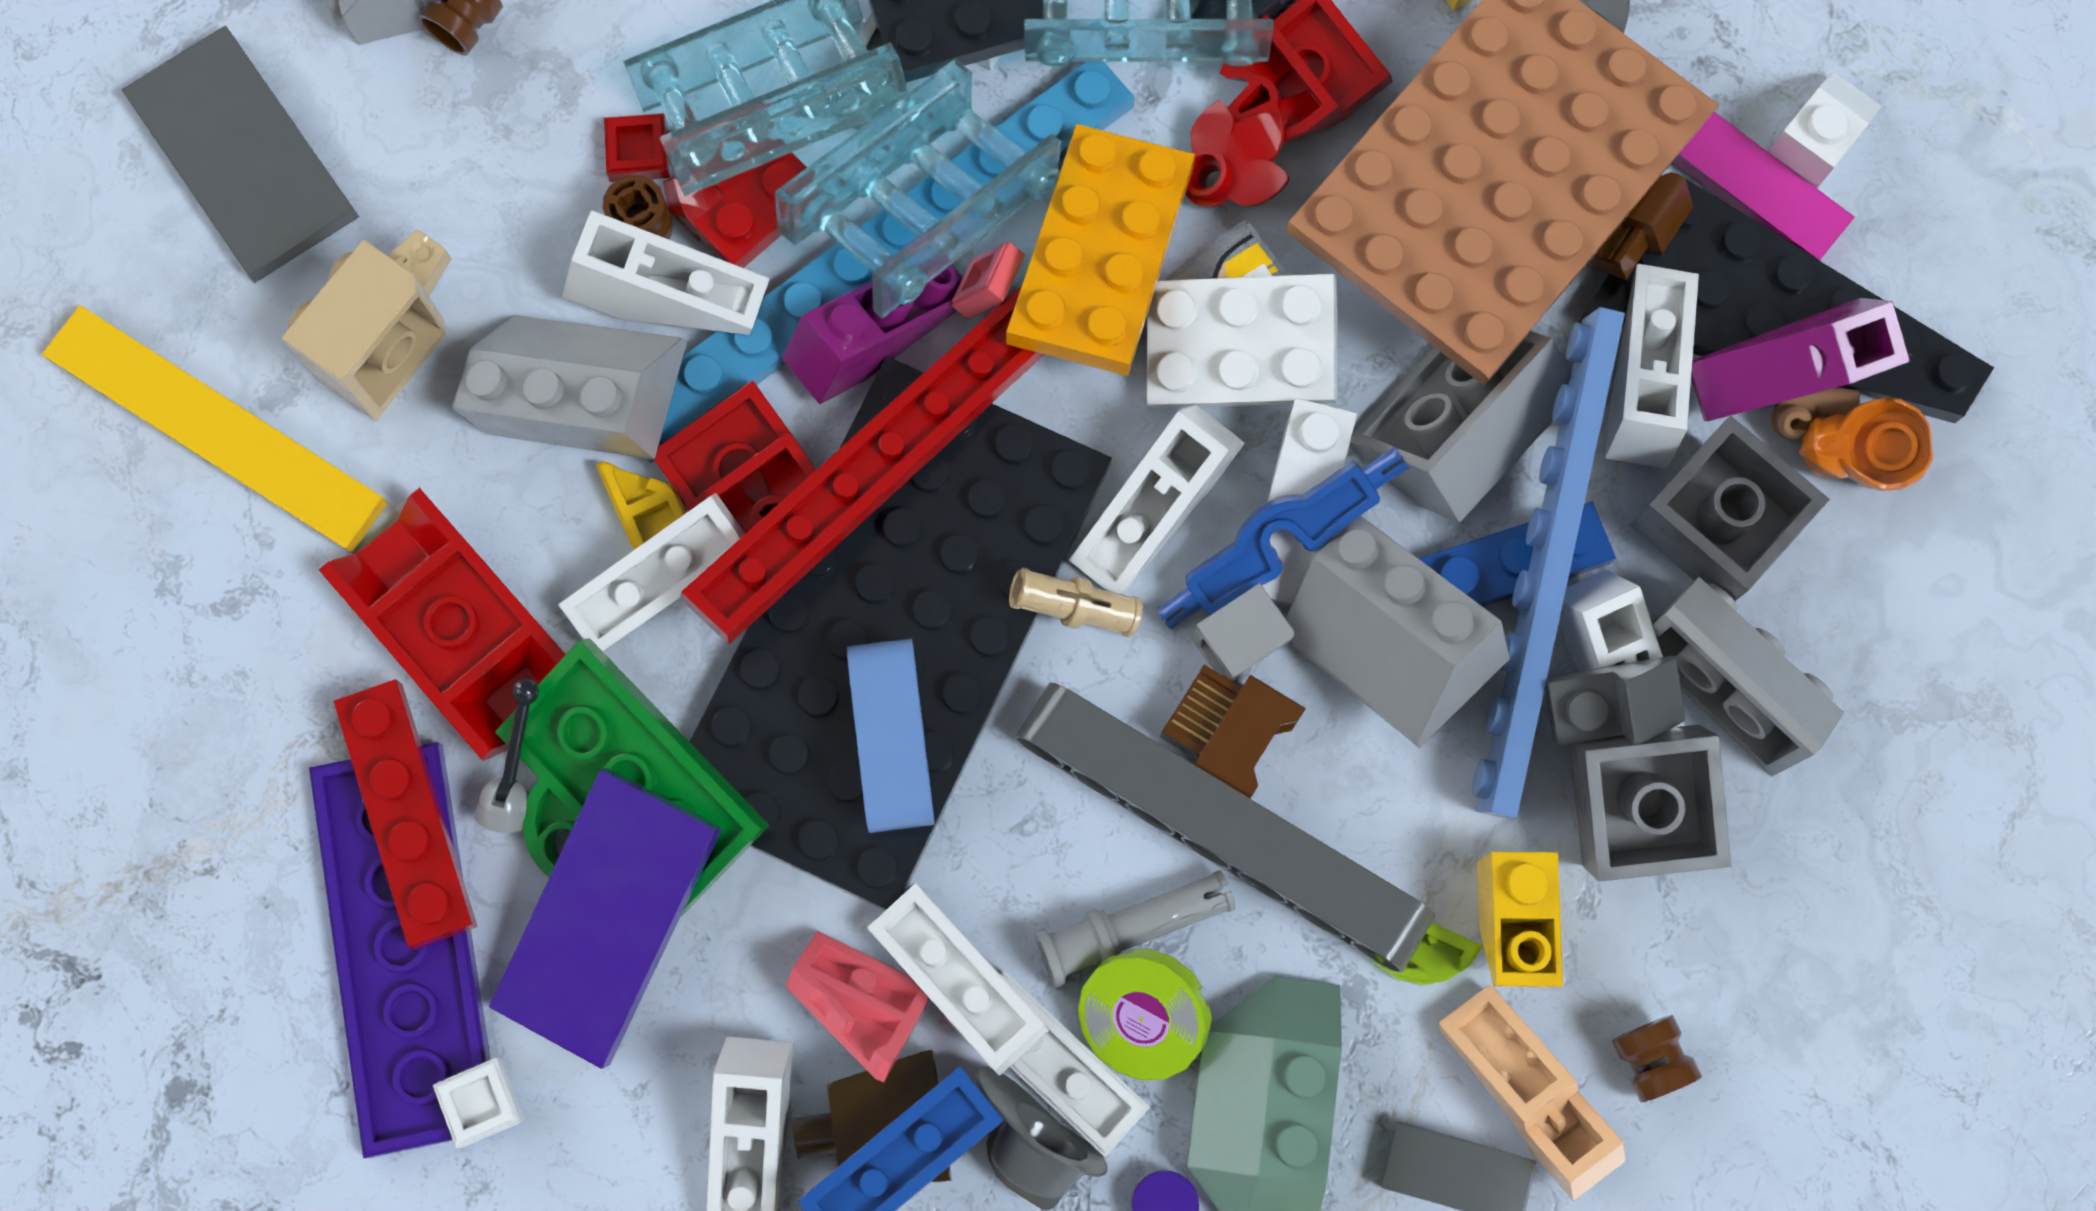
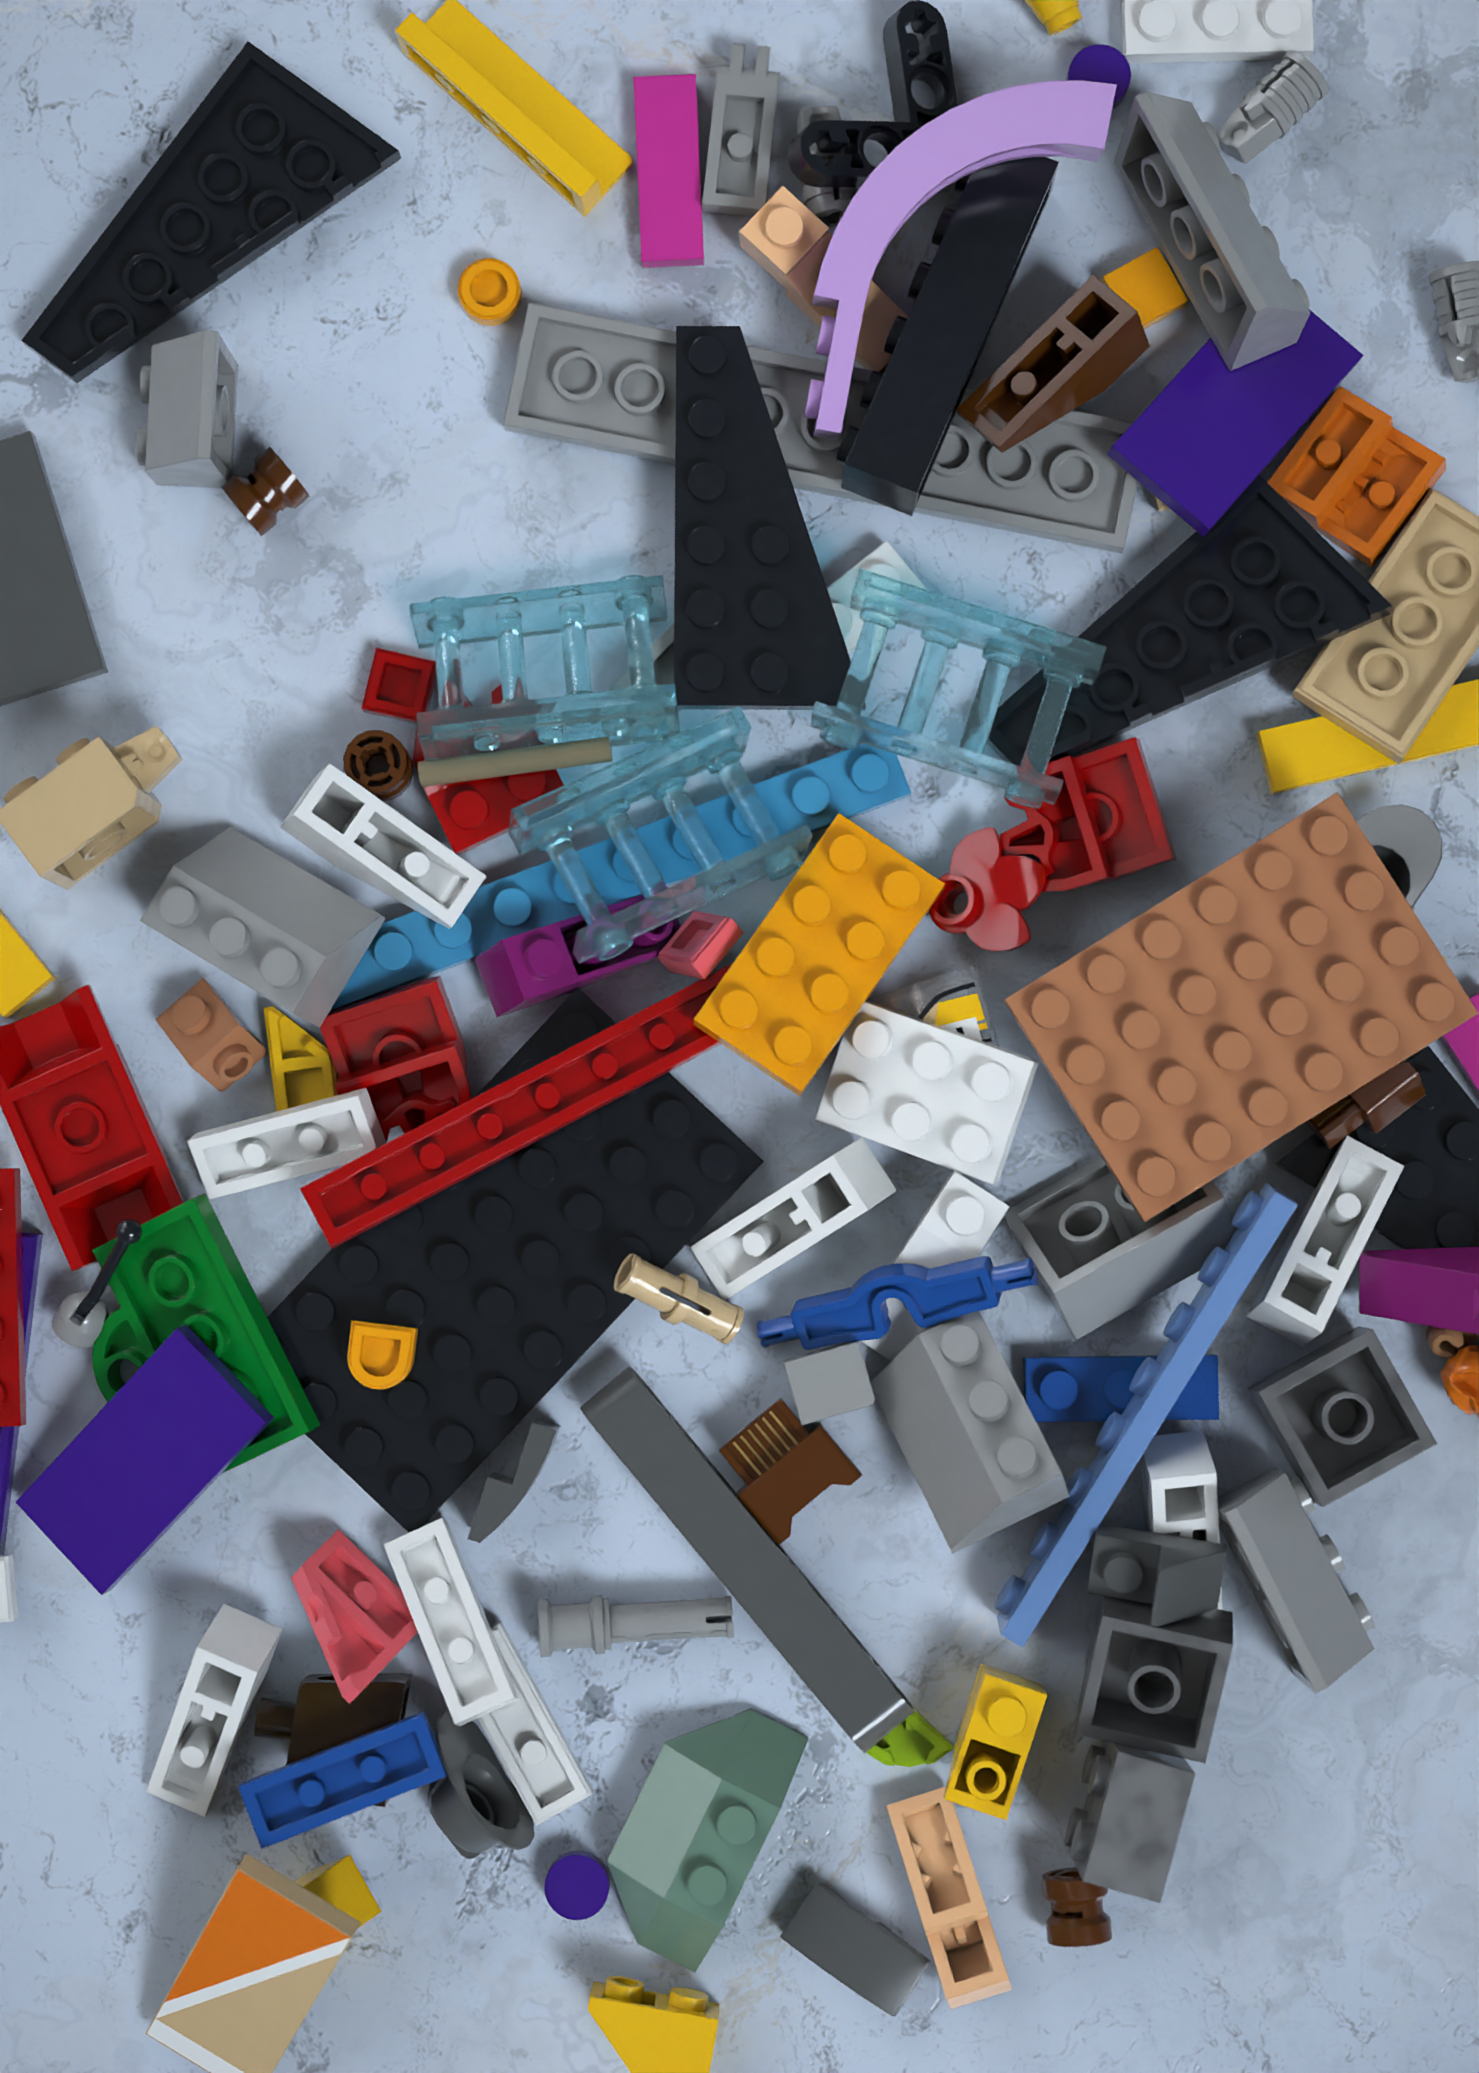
camera: 30 degrees right, 10 degrees up
(554, 505) = (211, 1036): none -> nougat bracket
(764, 161) = (515, 761): none -> dark tan bar
(807, 741) = (381, 1353): none -> light orange tile
(890, 735) = (459, 1376): medium blue beam -> none
(970, 839) = (504, 1493): none -> dark grey slope
(1144, 1014) = (613, 1712): lime tile -> none
(1678, 943) = (1129, 1818): none -> flat silver brick

